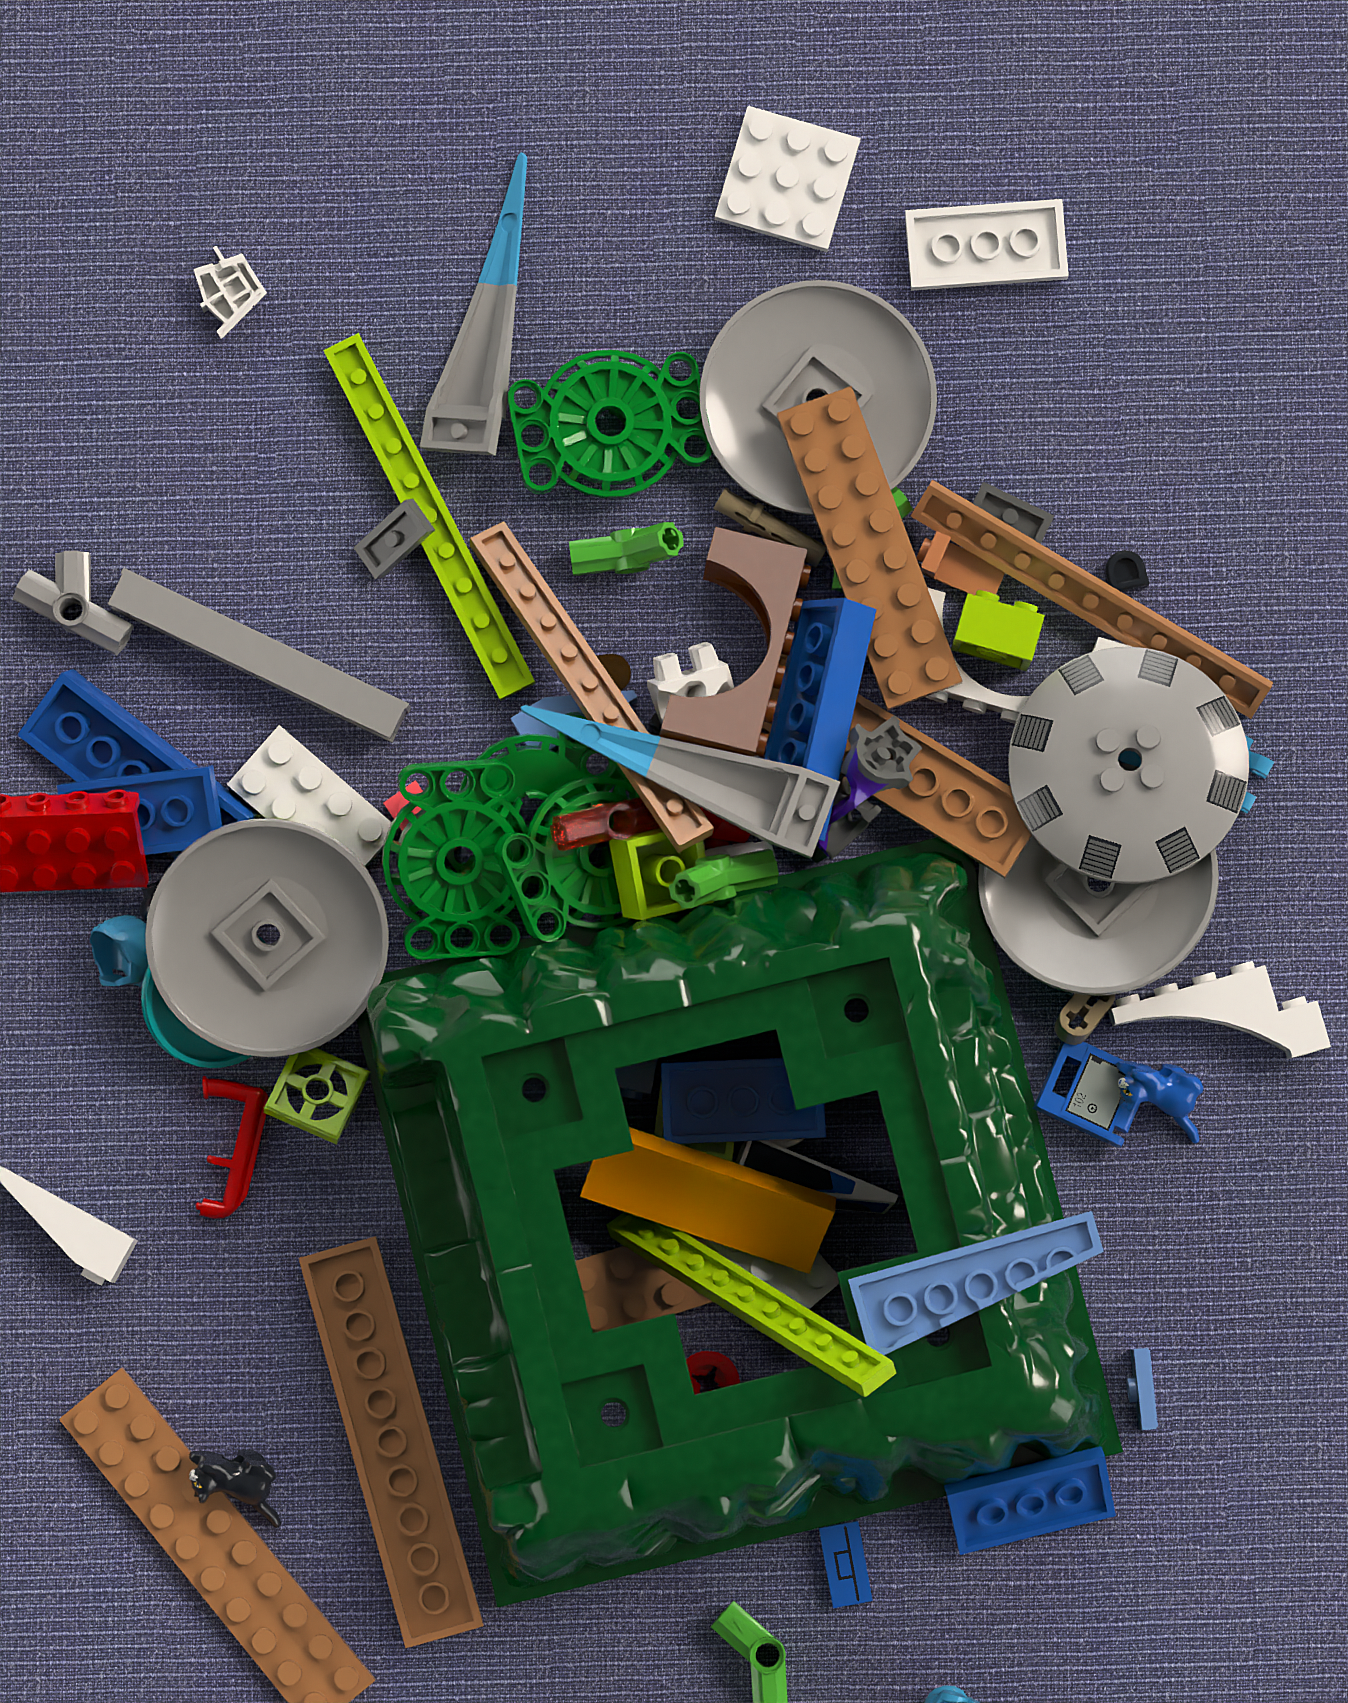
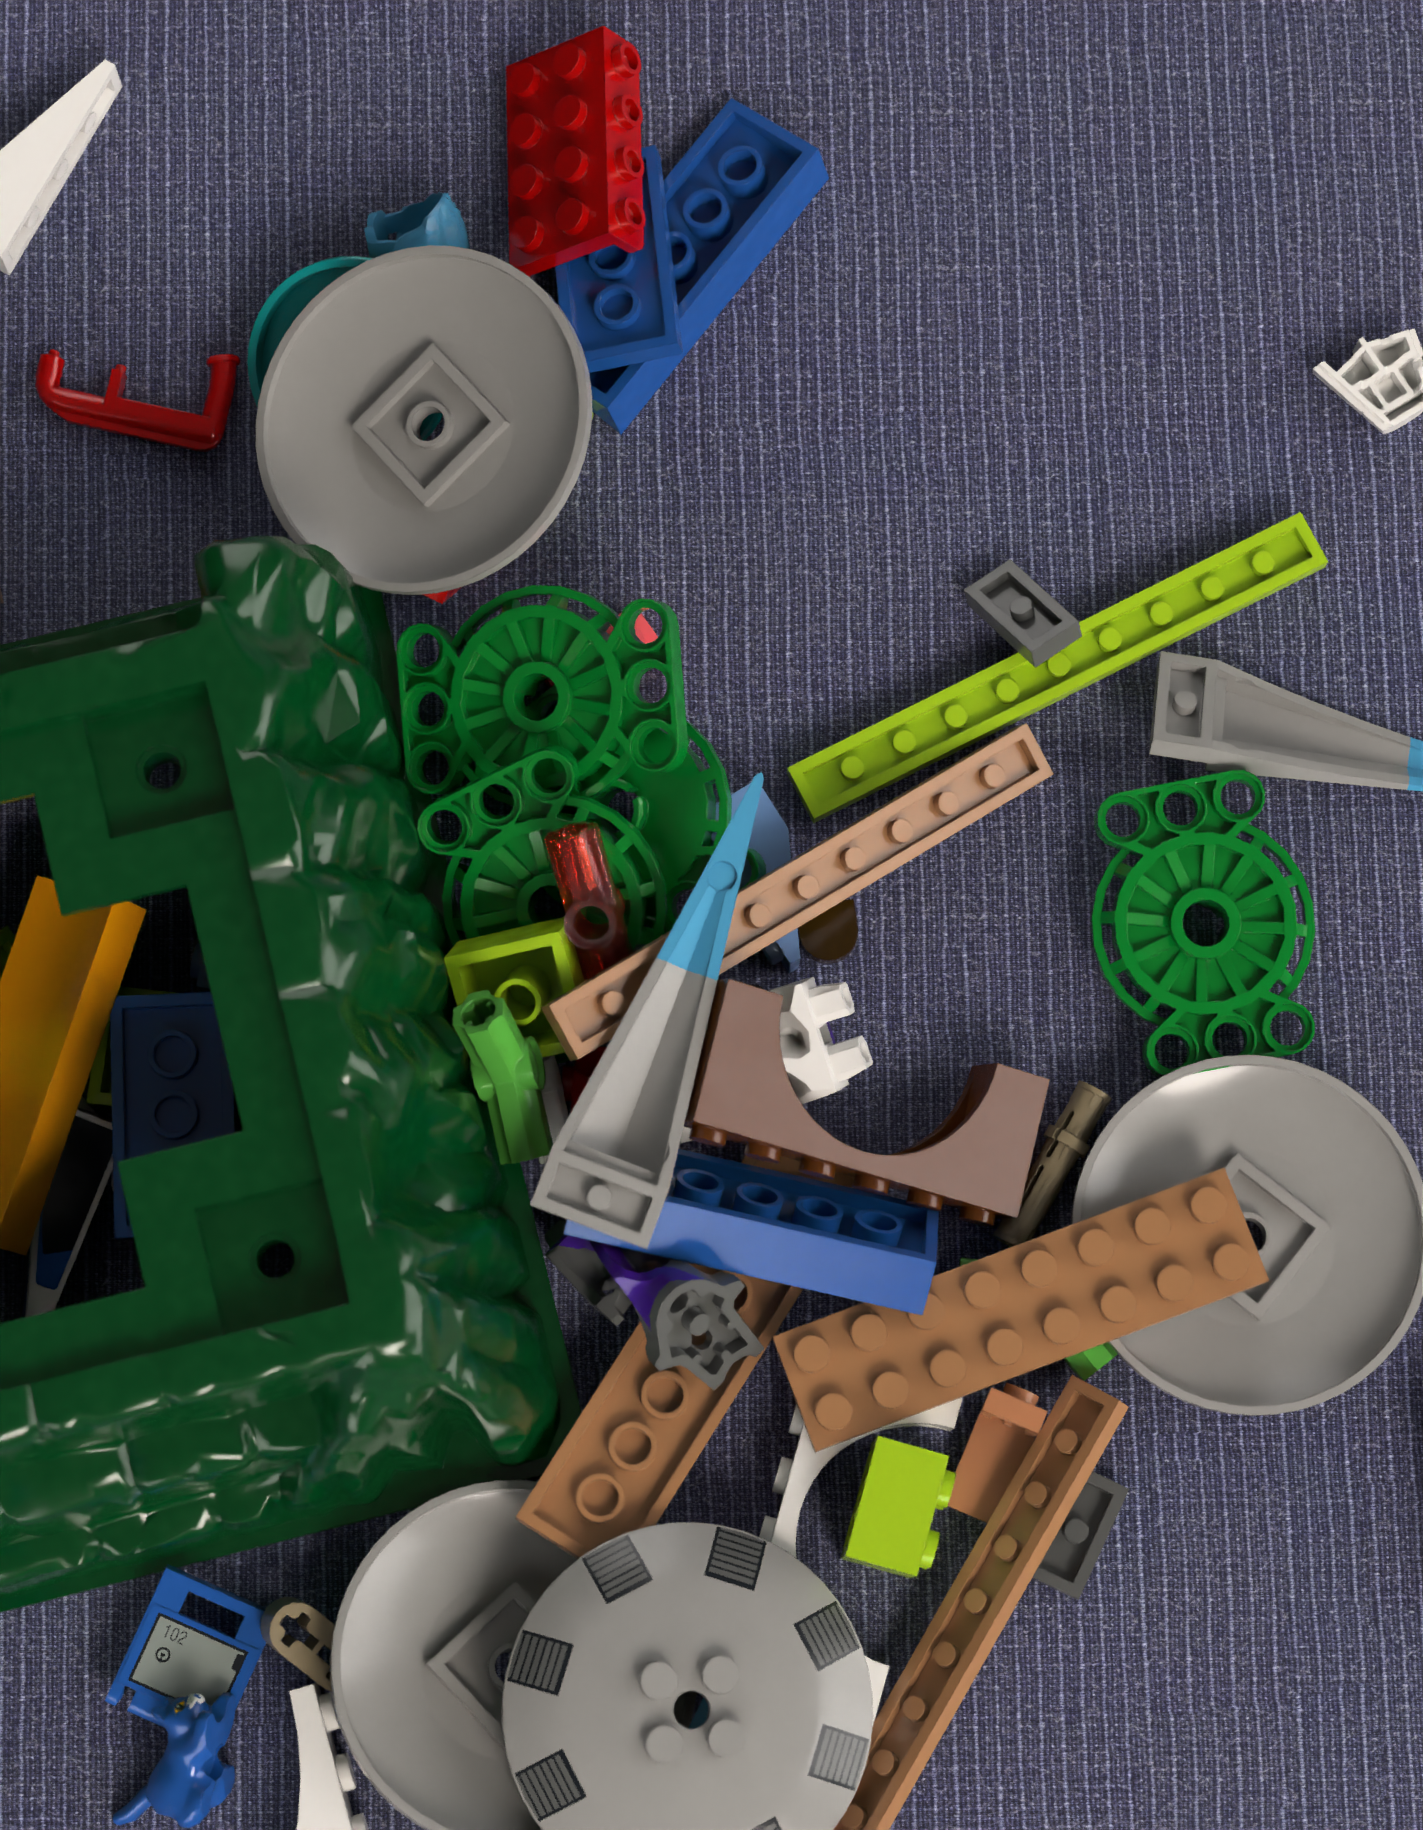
camera: 85 degrees right, 5 degrees down
(73, 587) = (943, 165): light grey piece -> none
(258, 655) = (847, 427): light grey tile -> none
(295, 786) = (634, 503): white plate -> none
(330, 1128) = (186, 455): lime piece -> none
(626, 550) = (1012, 947): bright green piece -> none
(1126, 571) = (994, 1713): black tile -> none

